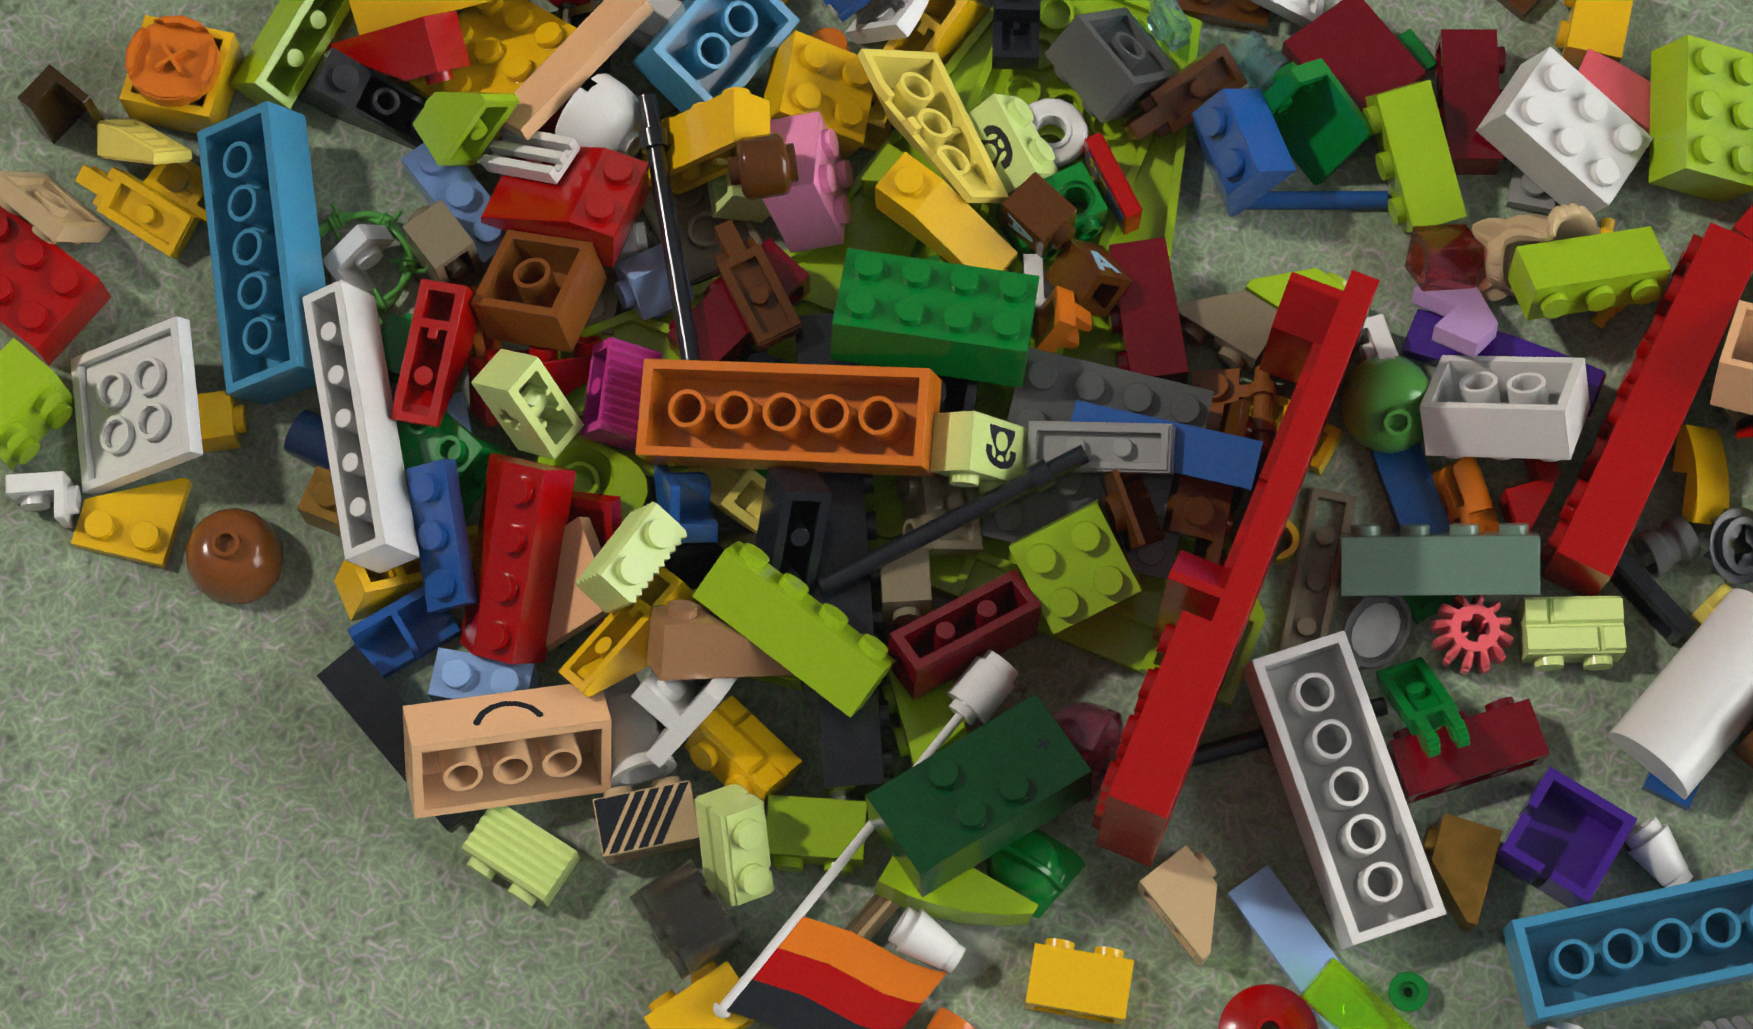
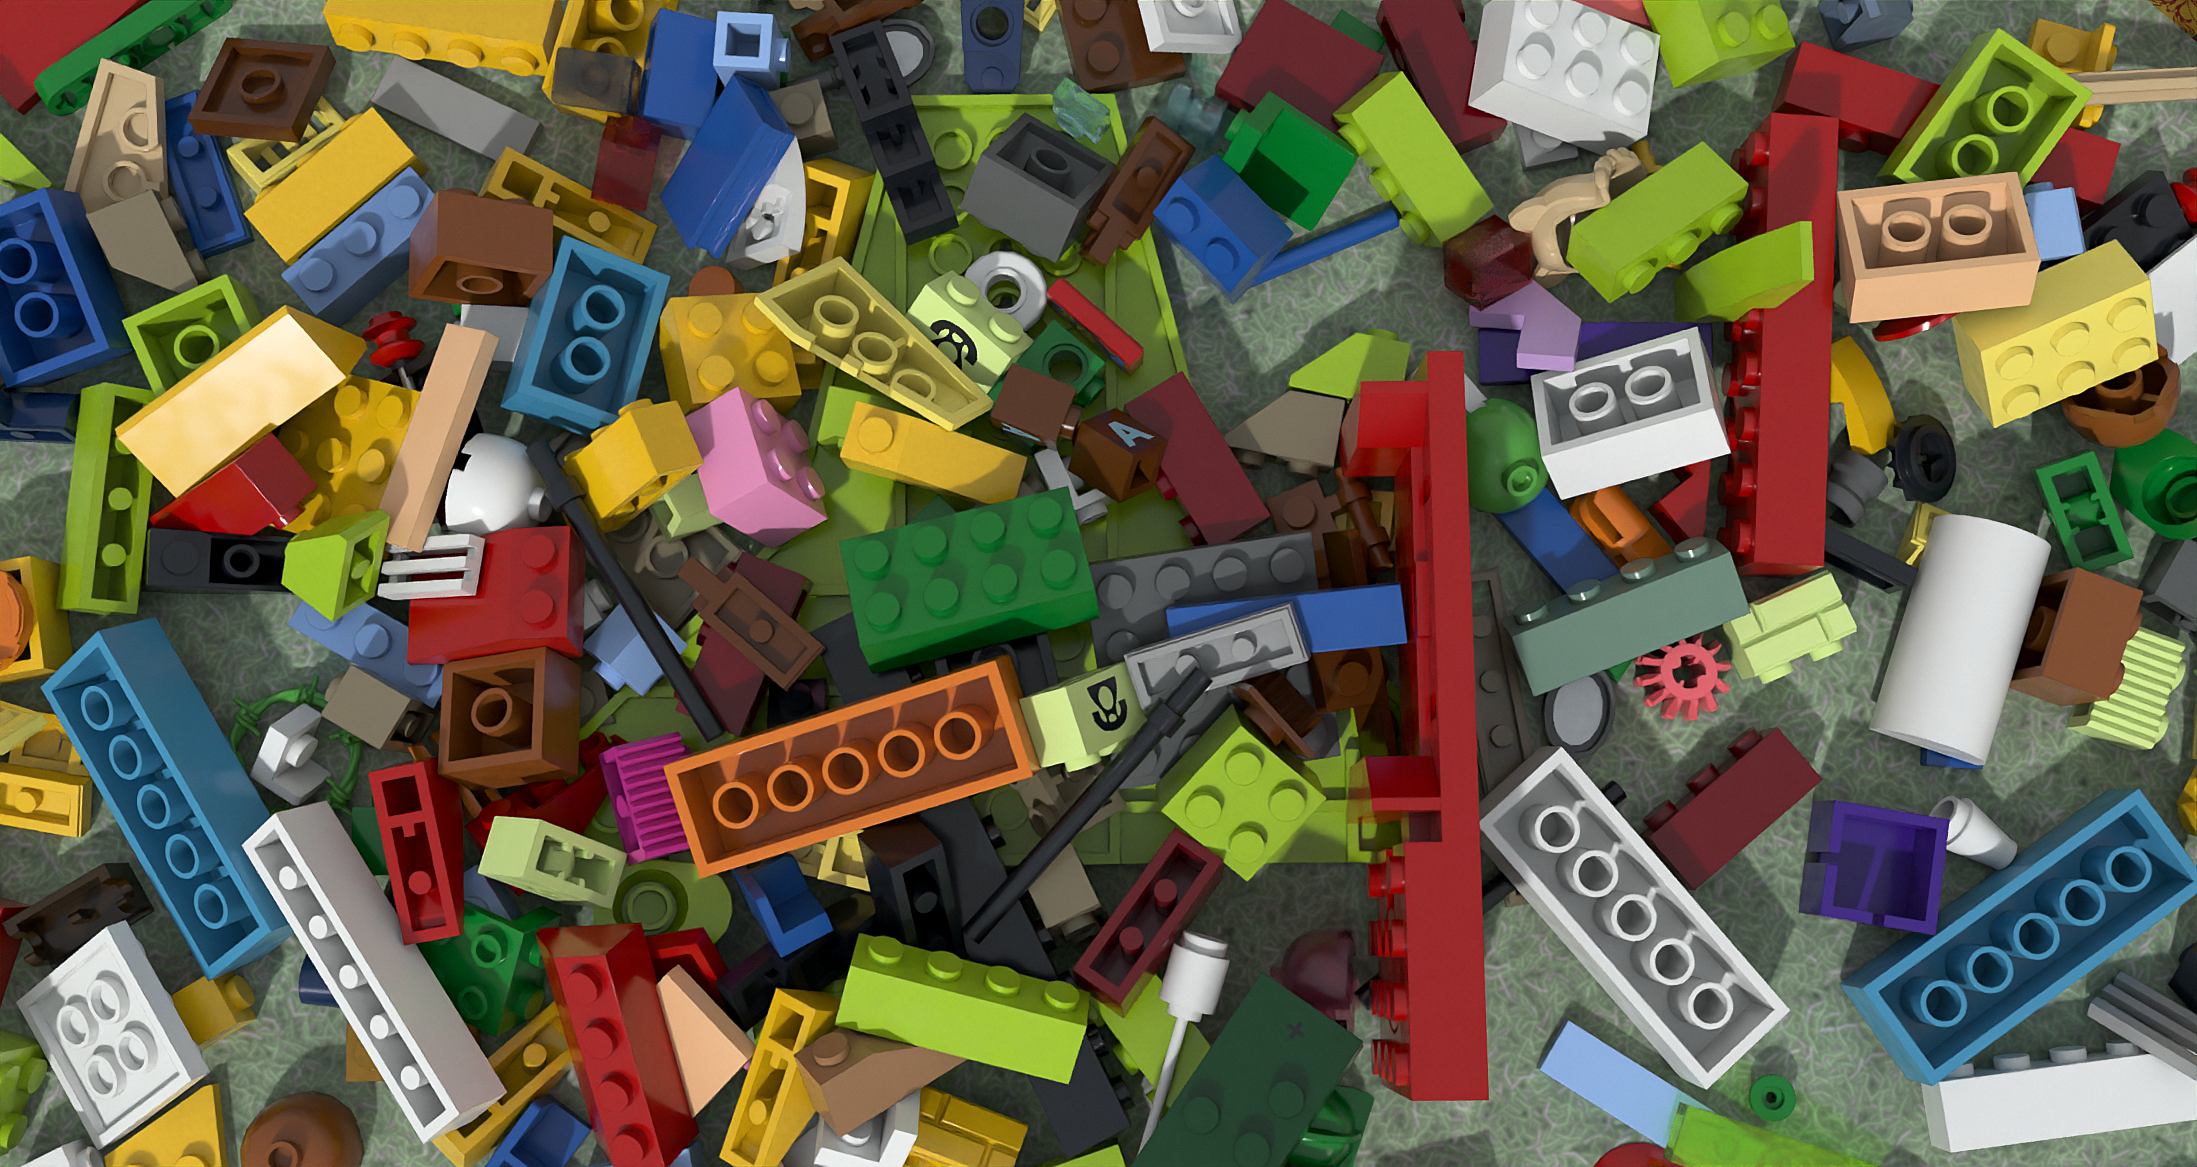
camera: 25 degrees left, 10 degrees up
(143, 305) = (78, 912): none -> dark brown hinge
(441, 535) = (521, 1054): blue plate -> none
(631, 558) = (747, 1006): yellowish green brick -> none
(763, 166) = (703, 487): reddish brown head -> none
(1058, 321) = (1108, 521): orange tile -> none
(1184, 899) = (1512, 1106): tan slope -> none
(1422, 704) = (1668, 781): green hinge -> none
(1461, 864) = (1775, 936): pearl gold slope -> none
(1638, 333) = (1747, 276): none -> lime slope

